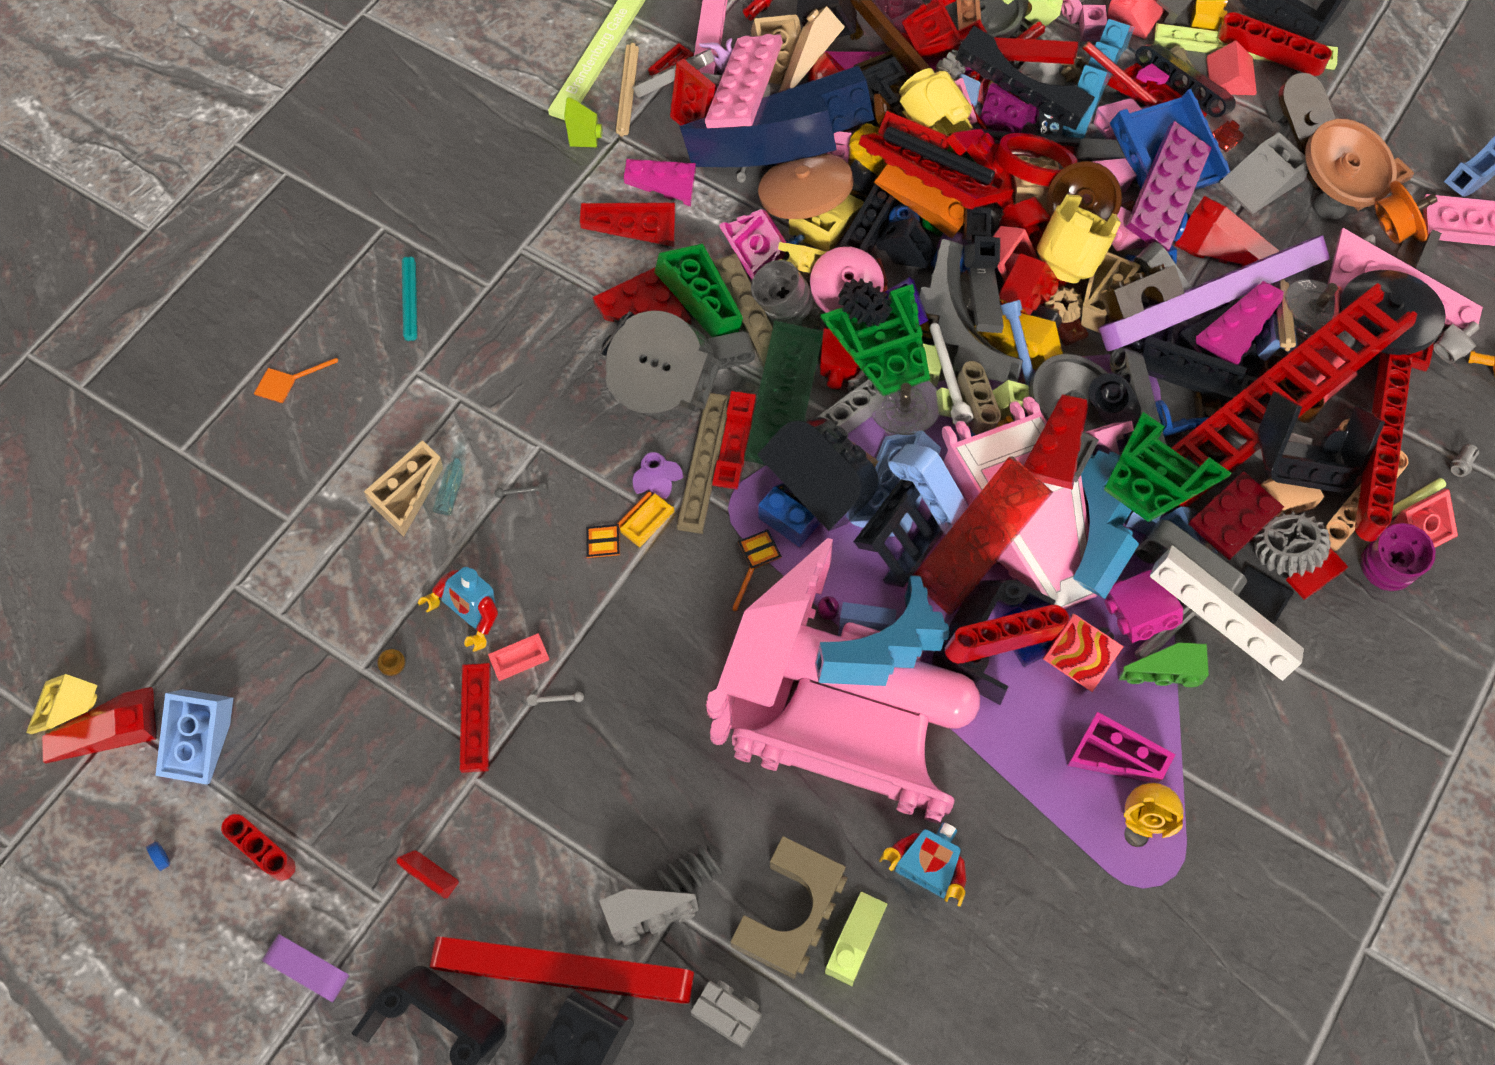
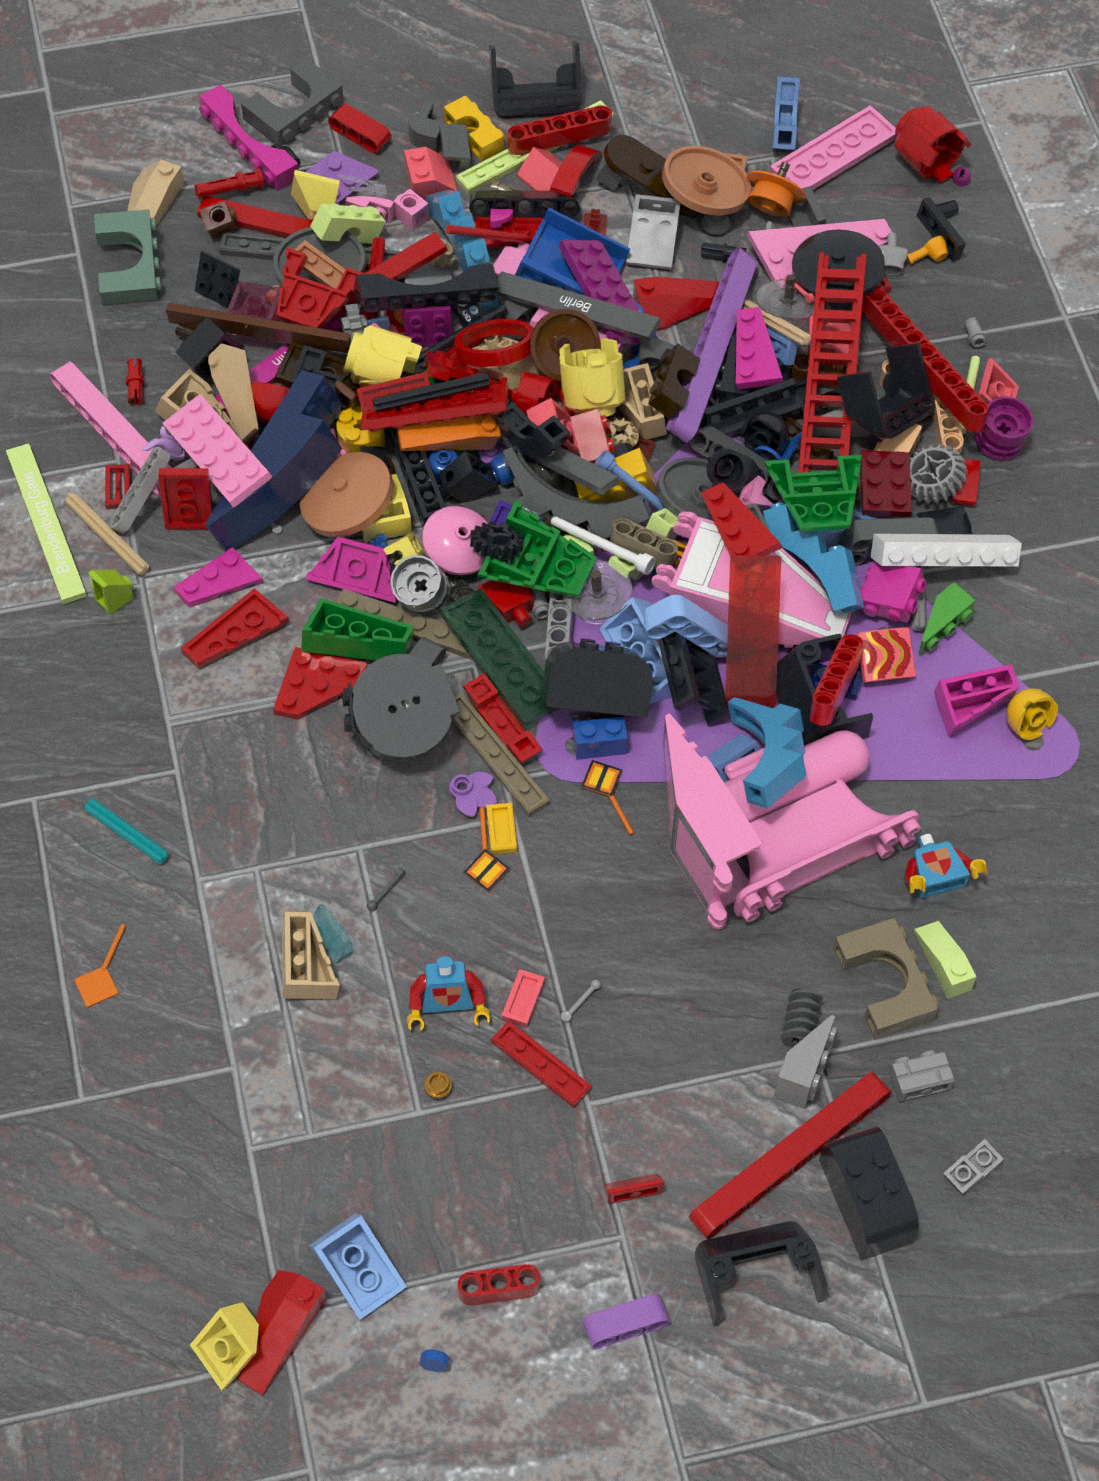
camera: 50 degrees left, 5 degrees down
(1133, 186) = (599, 312): none -> dark grey tile
(1182, 395) = (766, 430): none -> black cylinder
(1251, 76) = (572, 168): none -> red slope
(1307, 229) = (718, 251): none -> black axle

